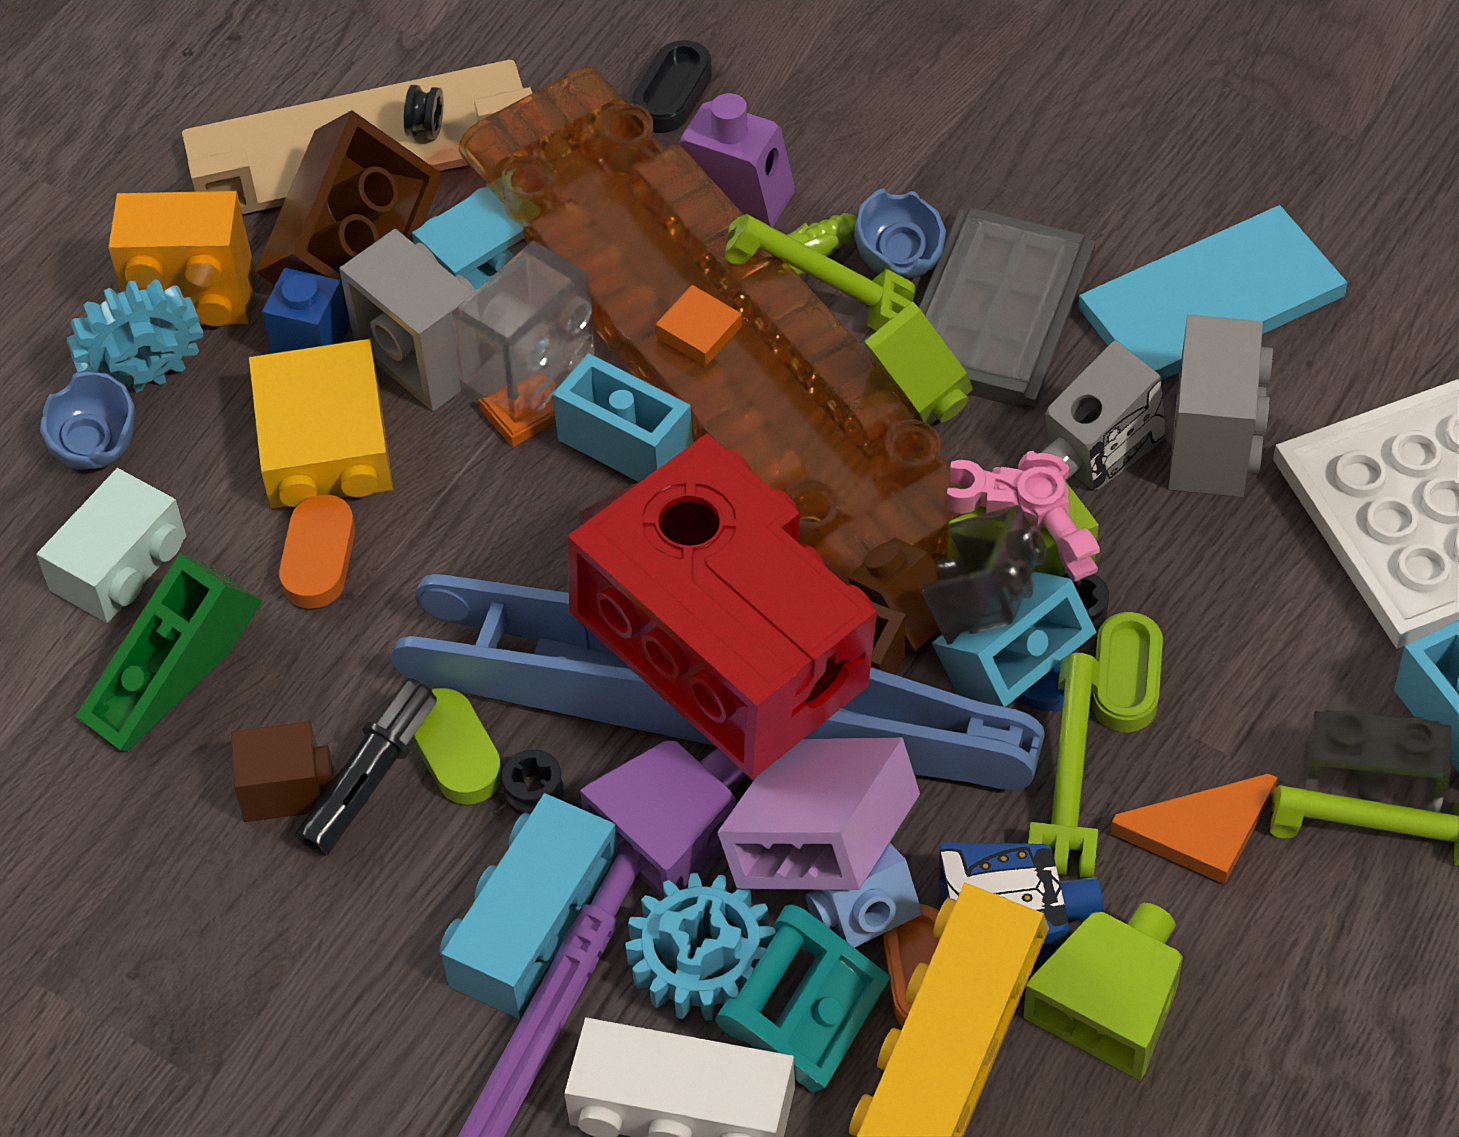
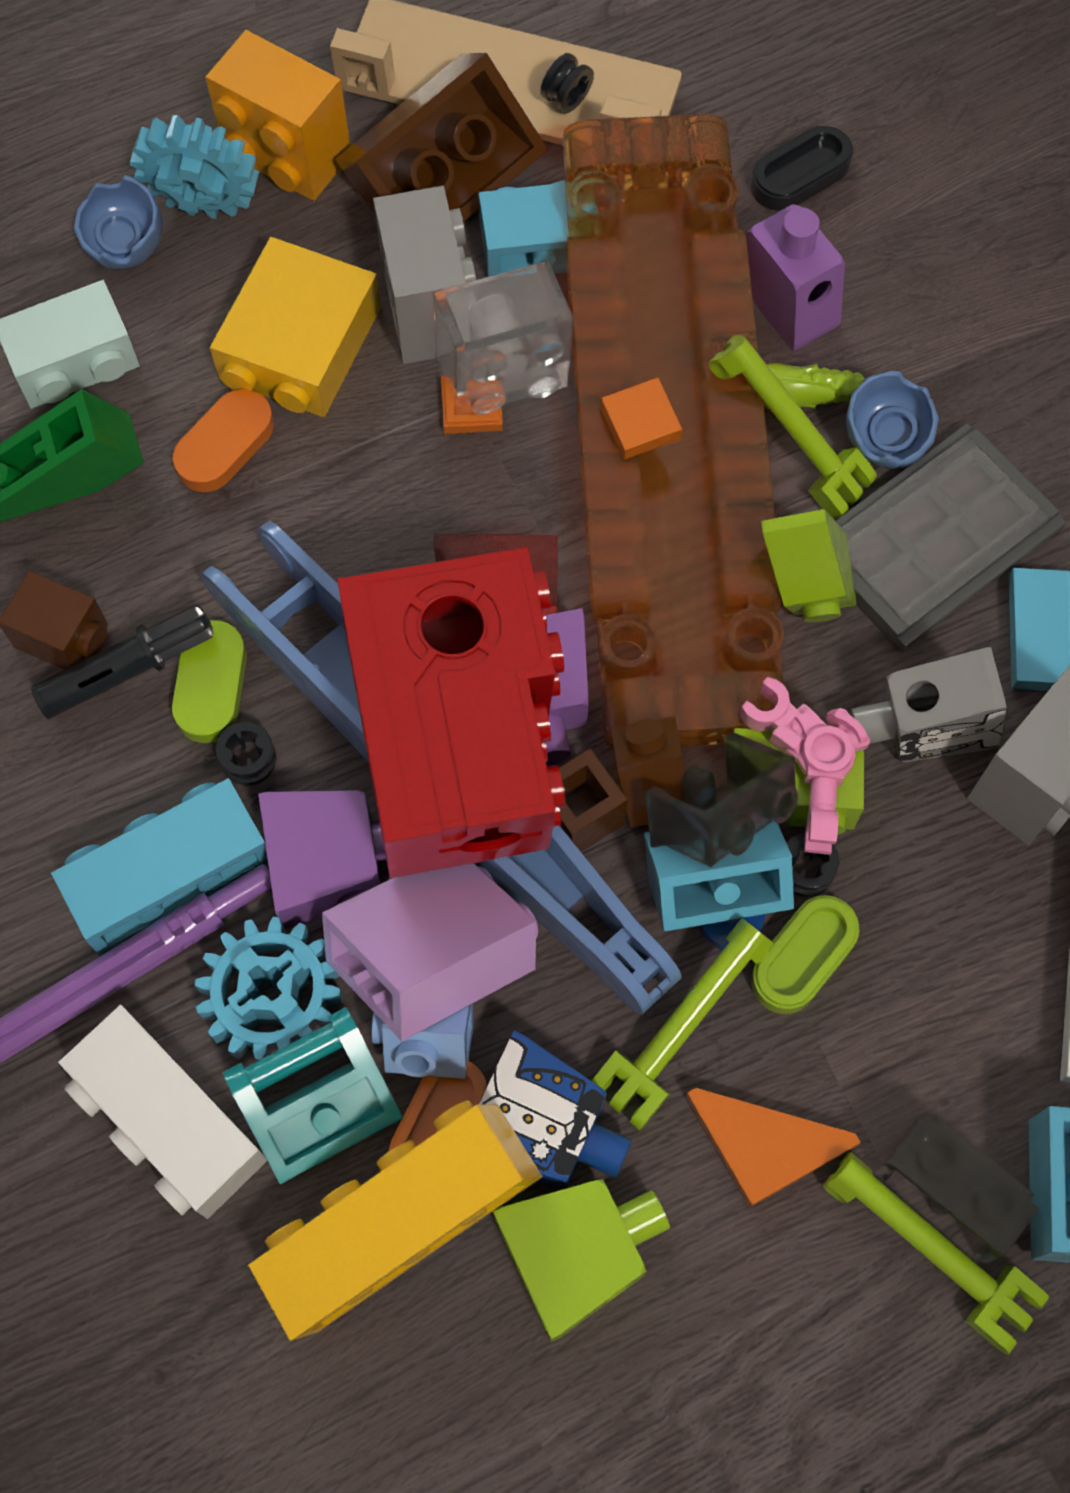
camera: 30 degrees right, 15 degrees up
(305, 312) = (344, 221): blue brick -> none
(620, 419) = (531, 467): medium azure brick -> none

